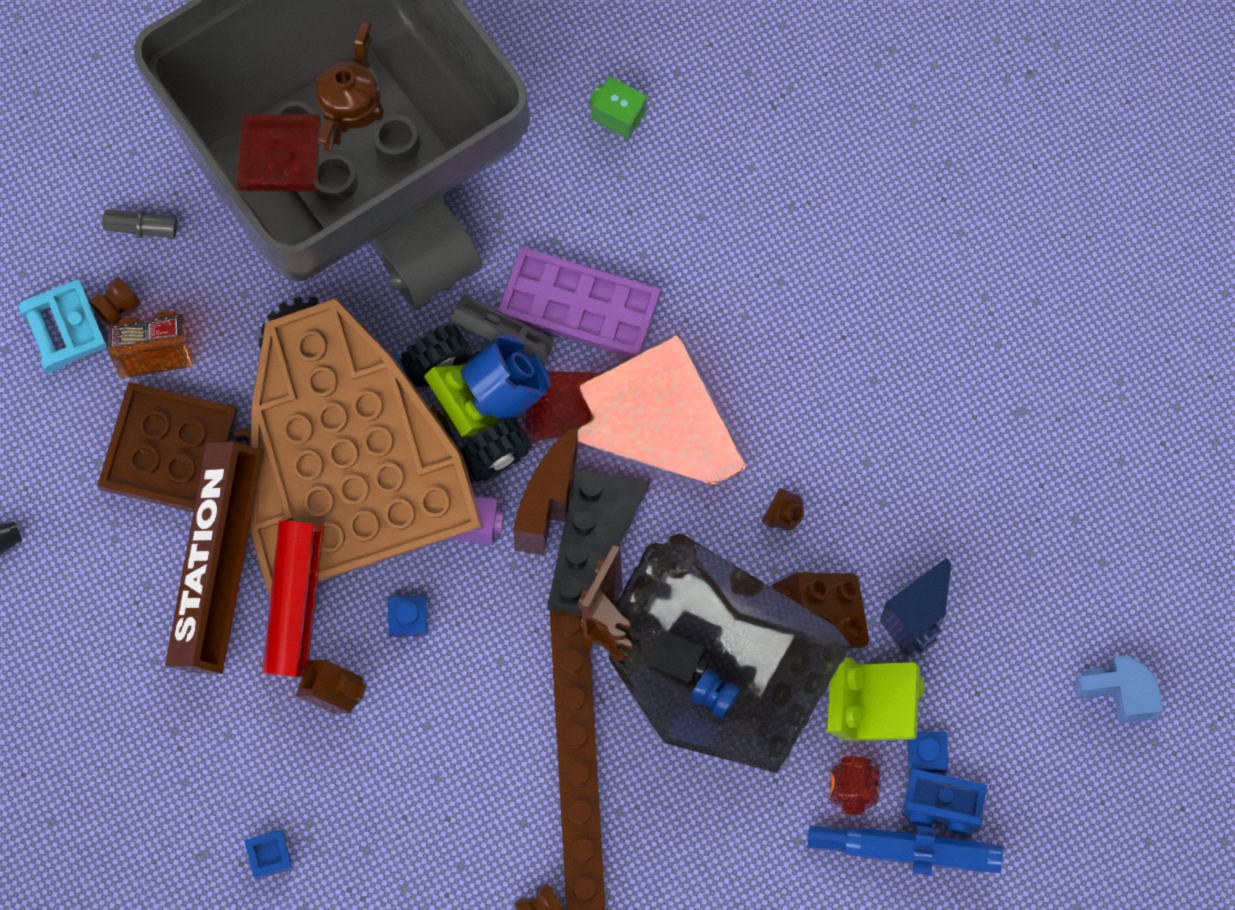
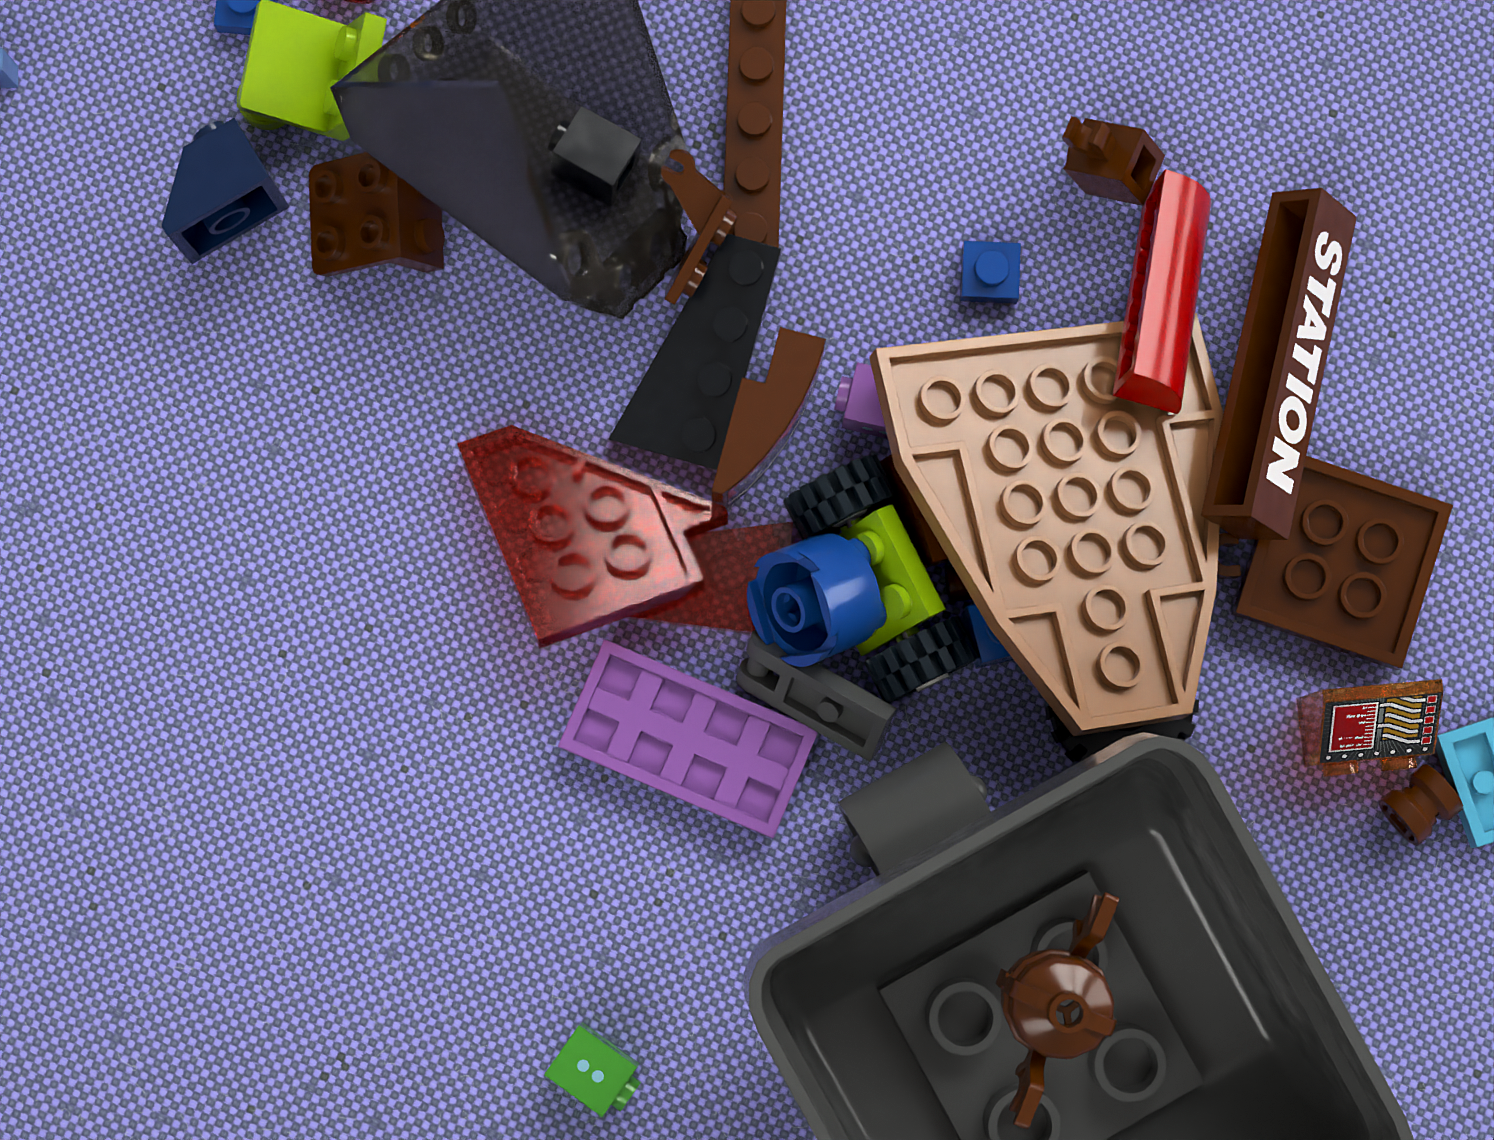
camera: 175 degrees left, 10 degrees up
(140, 223) = (1376, 939): dark grey axle -> none
(279, 153) = (1180, 916): clear red plate -> none
(715, 693) = (544, 98): blue wheel -> none
(784, 511) = (409, 378): reddish brown plate -> none

